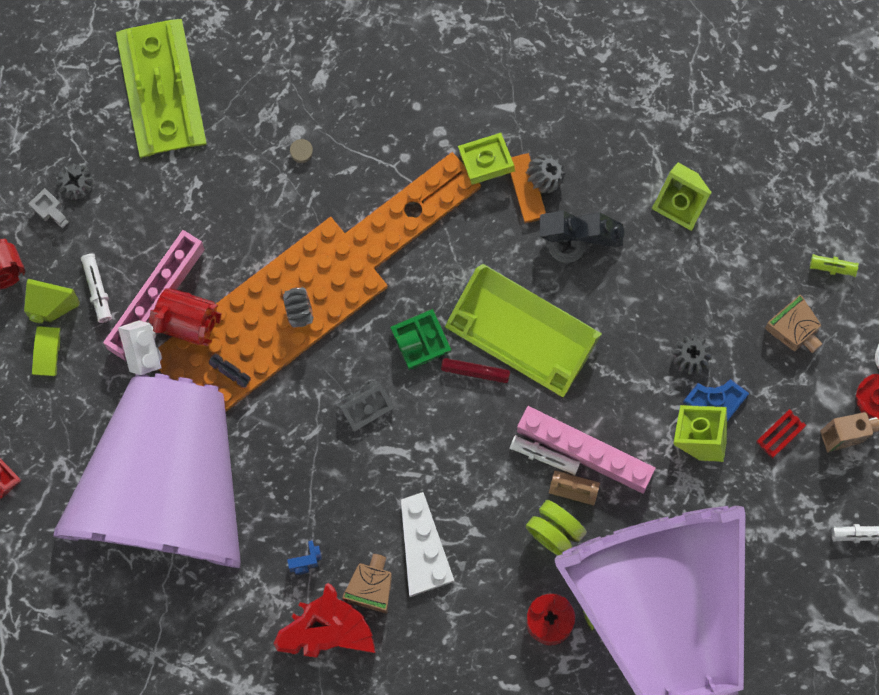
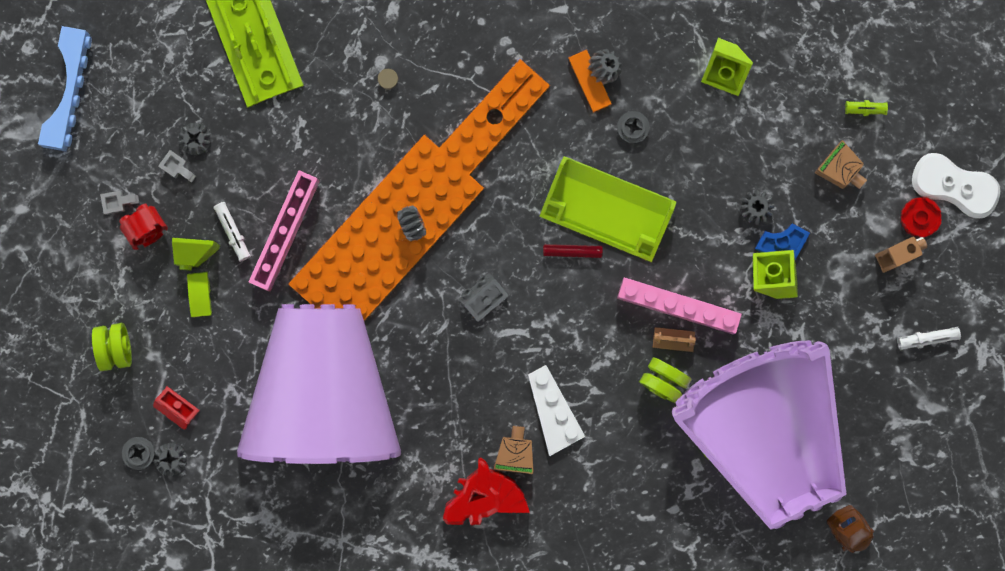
camera: 10 degrees left, 10 degrees up
(140, 347) = (281, 282): white brick -> none
(184, 316) = (315, 248): red container -> none
(229, 370) = (362, 287): black axle -> none
(302, 564) = (454, 445): blue bracket -> none
(420, 339) = (521, 231): green plate -> none
(486, 158) = (551, 61): lime plate -> none
(545, 455) = (635, 313): white pin -> none
(560, 609) = (682, 464): red brick -> none
(588, 228) = (646, 111): black arch -> none
(794, 420) = (852, 250): red tile -> none

